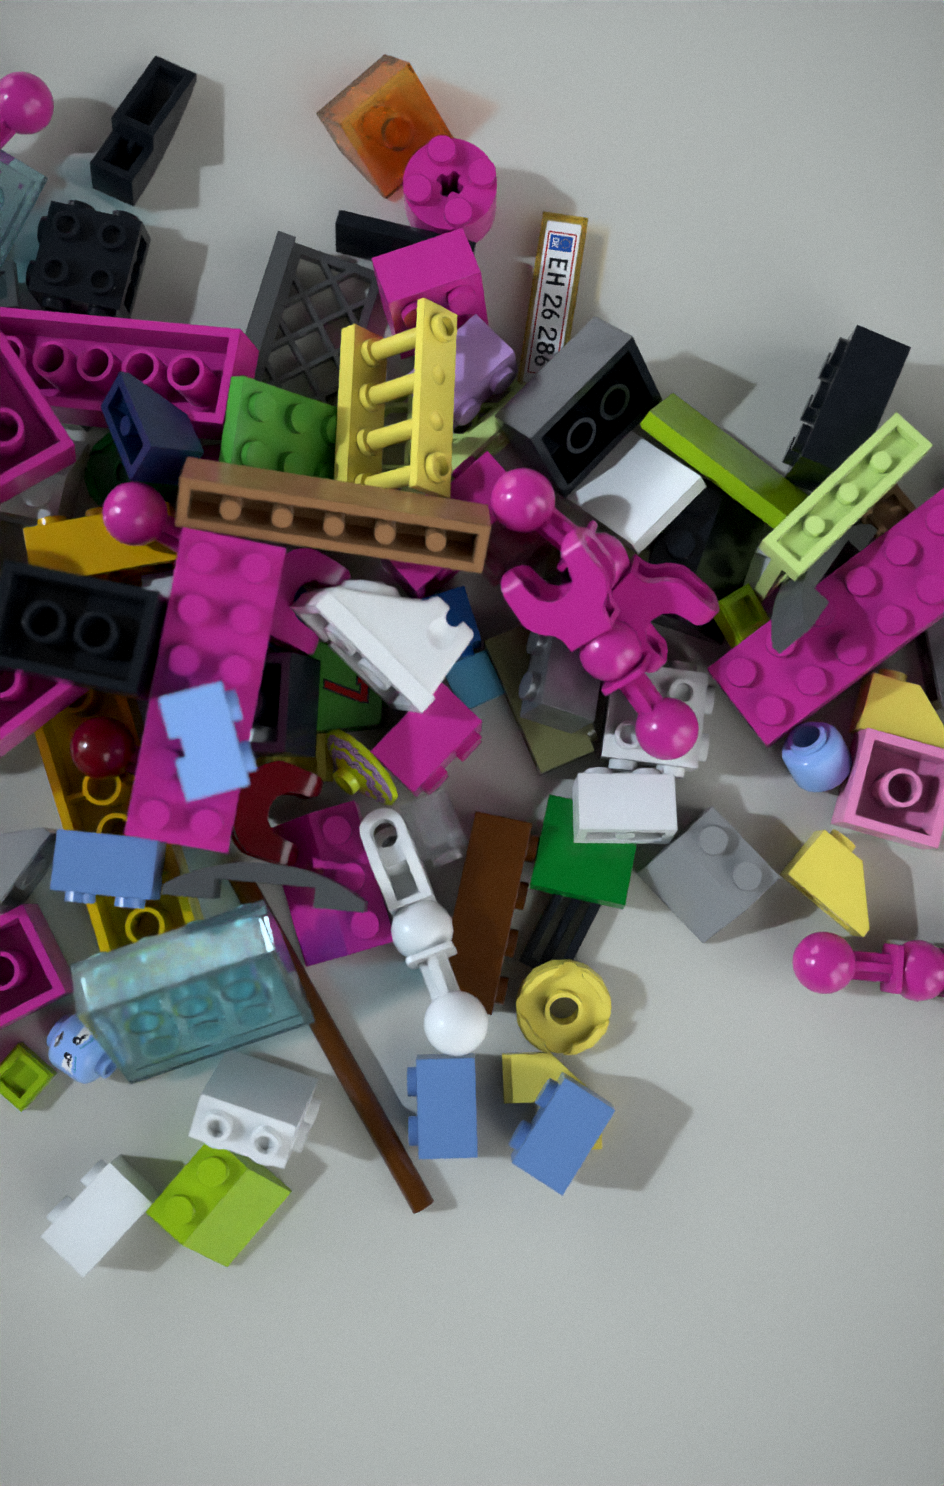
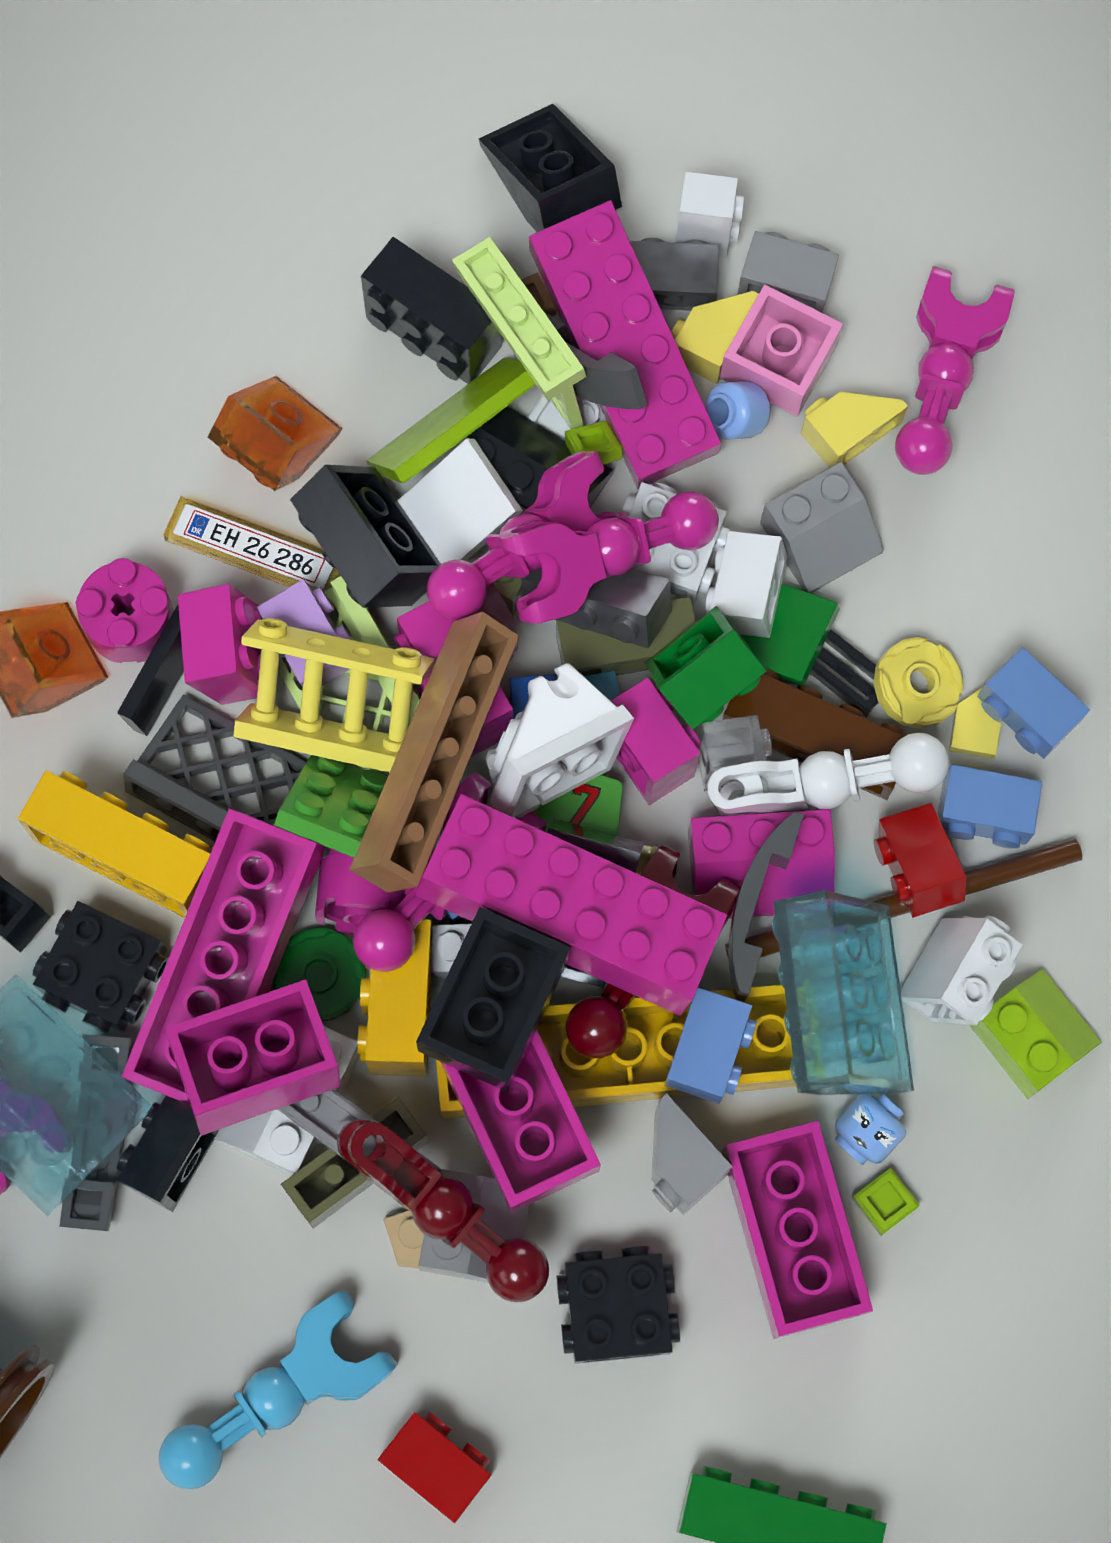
camera: 80 degrees left, 10 degrees down
(100, 1215) = (1031, 1146): white brick -> none
(149, 432) = (308, 911): dark blue slope -> none
(206, 235) = (114, 841): none -> yellow brick
(212, 751) = (626, 891): light blue brick -> none
(359, 769) = (660, 808): neon yellow dish -> none
(367, 1046) = (921, 860): none -> red brick
(509, 779) = (705, 668): none -> green brick
(678, 290) = (272, 432): none -> clear orange slope

